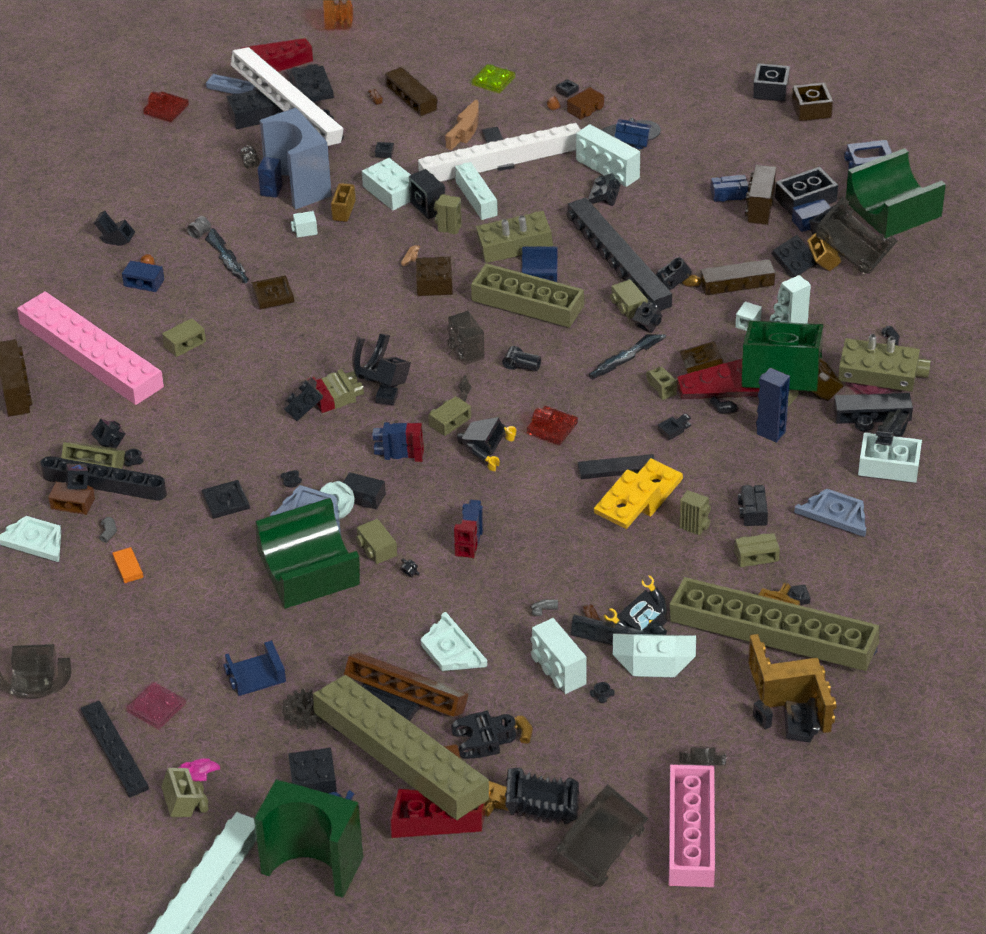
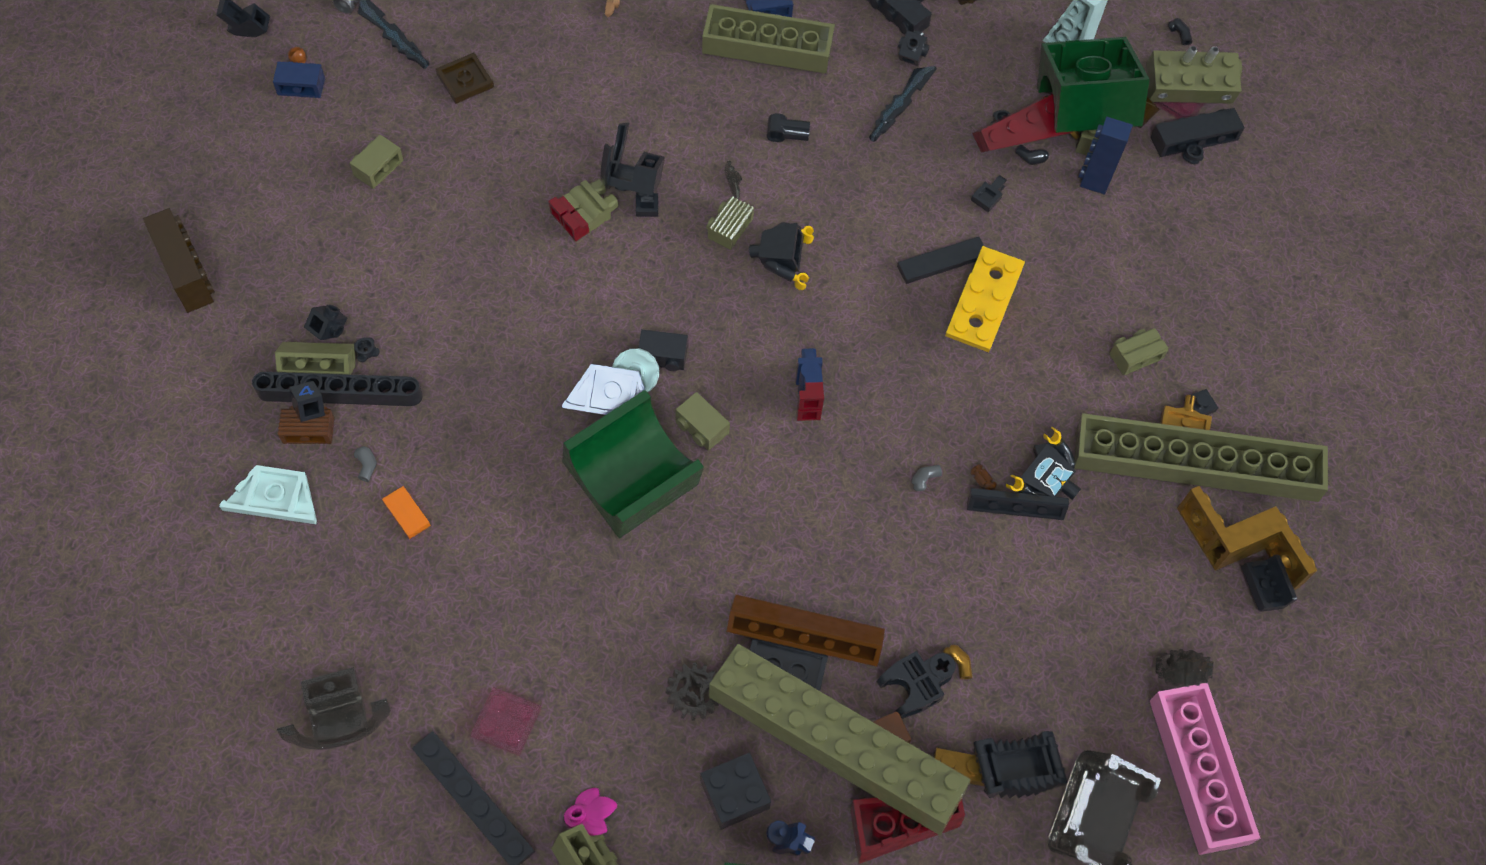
camera: 20 degrees left, 20 degrees up
(90, 348) = (263, 195): bright pink brick -> none
(225, 499) = (498, 389): black tile -> none
(255, 672) = (614, 643): dark blue panel -> none
(291, 478) = (572, 351): black plate -> none
(304, 399) = (551, 230): black bracket -> none
(399, 441) = (686, 272): dark blue hips -> none
(409, 568) = (753, 452): black plate -> none
(434, 276) = (650, 27): dark brown brick -> none
(451, 647) = (837, 558): light aqua wing -> none
(465, 337) = (718, 111): clear smoke brick -> none
(551, 424) = (852, 215): clear red plate -> none
(558, 656) = (973, 553): light aqua brick -> none
(602, 692) = (1036, 583): black plate -> none
(627, 298) = (882, 25): olive brick -> none
(654, 654) = (1076, 524): light aqua wedge -> none
(662, 382) = (956, 134): olive leg -> none
(694, 512) = (1059, 315): olive brick -> none
(701, 357) = (993, 96): dark brown plate -> none
(747, 312) = (1022, 29): light aqua brick -> none
(753, 504) = (1114, 289): black brick -> none
(762, 714) = (1224, 584): black plate -> none
(836, 511) = (1205, 279): sand blue wing -> none
(890, 462) = (1241, 198): light aqua brick -> none
(893, 425) = (1237, 160): black piece -> none

